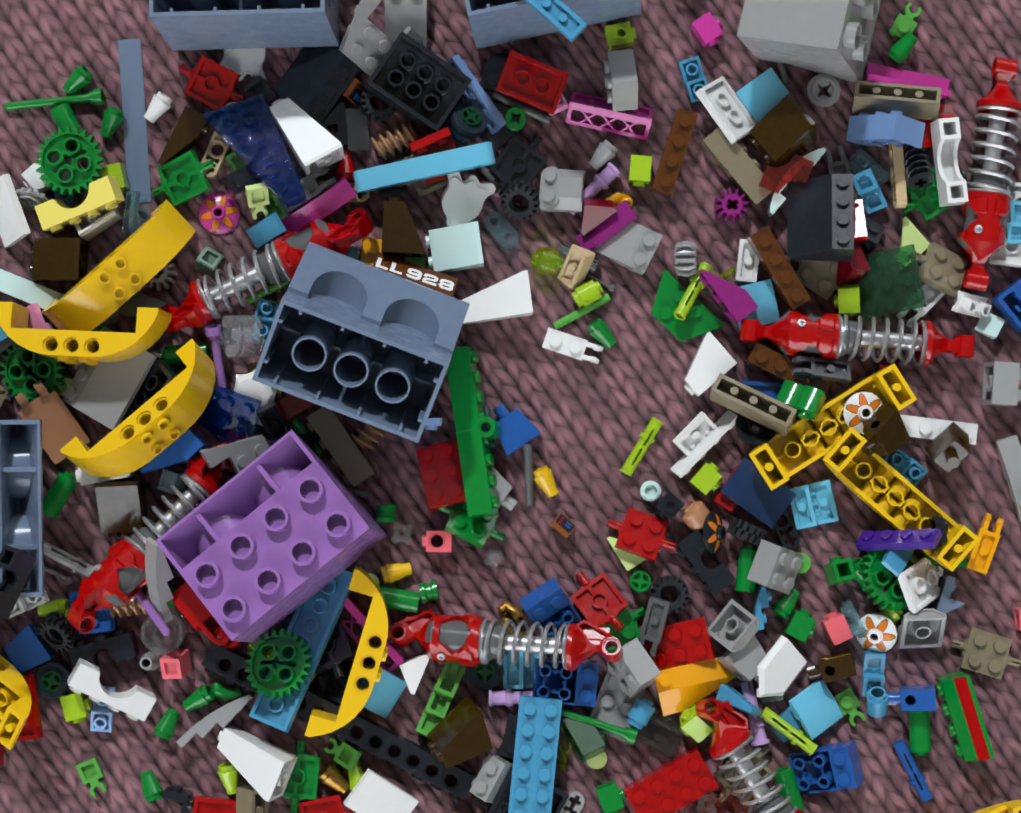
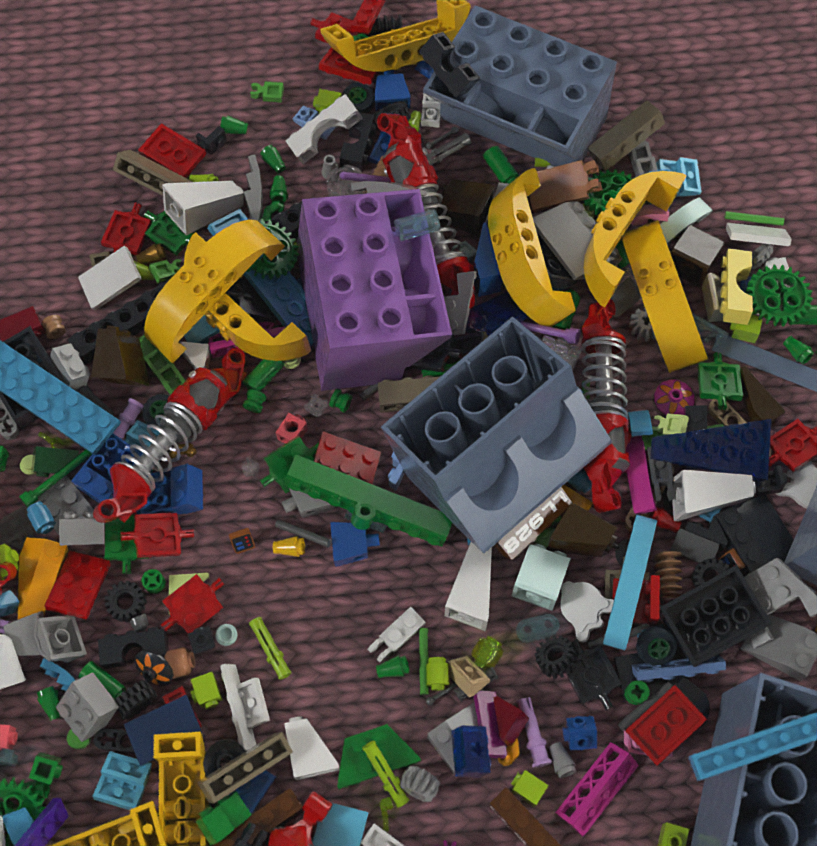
camera: 120 degrees right, 20 degrees down
(158, 106) = (796, 395): white cone -> none
(175, 664) = (315, 183): coral brick -> none
(197, 520) = (417, 224): none -> clear light blue brick
(208, 261) = (637, 369): sand green slope -> none
(347, 690) = (204, 282): none -> yellow slope
(395, 572) = (287, 383): yellow cone -> none
(514, 611) = (202, 458): pearl gold arm -> none
(561, 190) = (547, 701): light grey slope -> none
(573, 149) = (580, 733): none -> blue brick
(621, 80) = (626, 813): light grey brick -> none
(641, 228) = (471, 751): none -> clear blue brick
(654, 623) = (107, 568): dark grey hinge -> none
(680, 570) = (140, 623): none -> dark grey hinge
(734, 298) = (358, 807): magenta slope -> none
(800, 625) = (23, 704): green brick -> none

